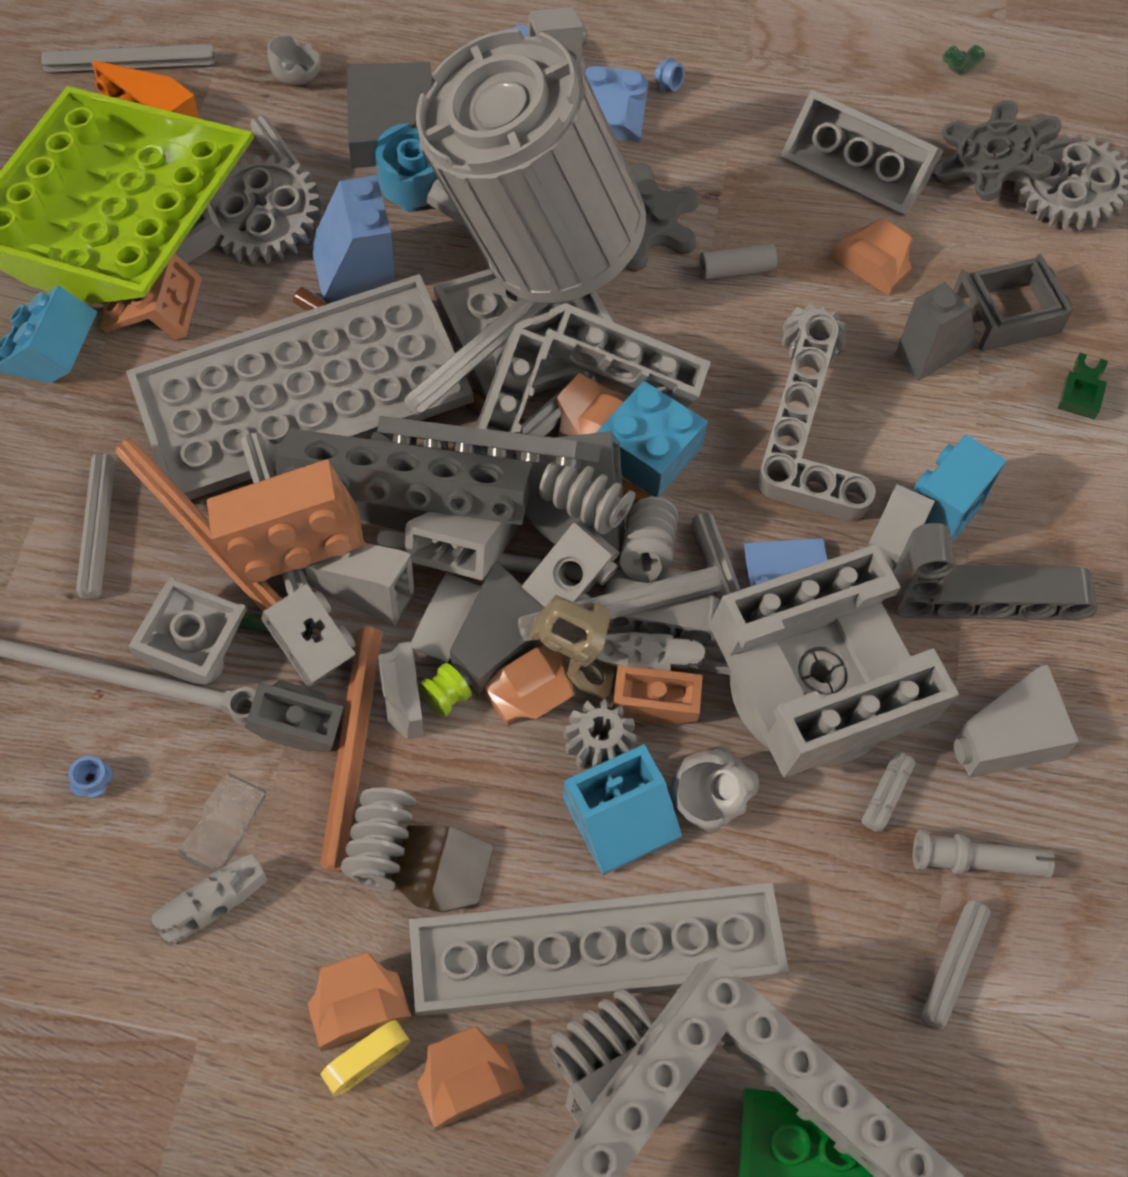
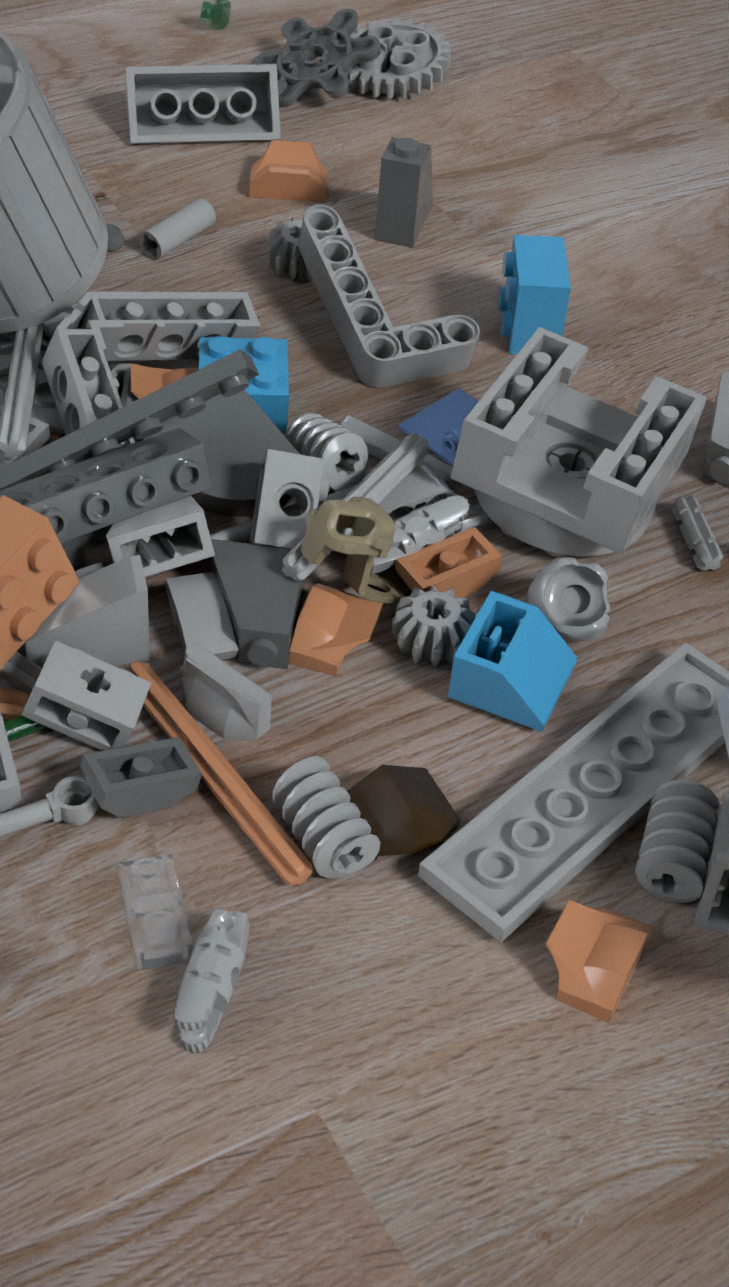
camera: 40 degrees left, 15 degrees down
(355, 1000) = (437, 967): nougat slope -> none
(365, 1057) = (495, 1000): light yellow beam -> none
(444, 690) = (262, 664): lime wheel -> none
(585, 497) = (254, 426): light grey piece -> none
(900, 517) = (515, 322): light grey slope -> none
(942, 590) = (631, 350): dark grey beam -> none
(1022, 327) = (464, 142): dark grey window -> none
(1083, 389) = (547, 191): dark green plate -> none

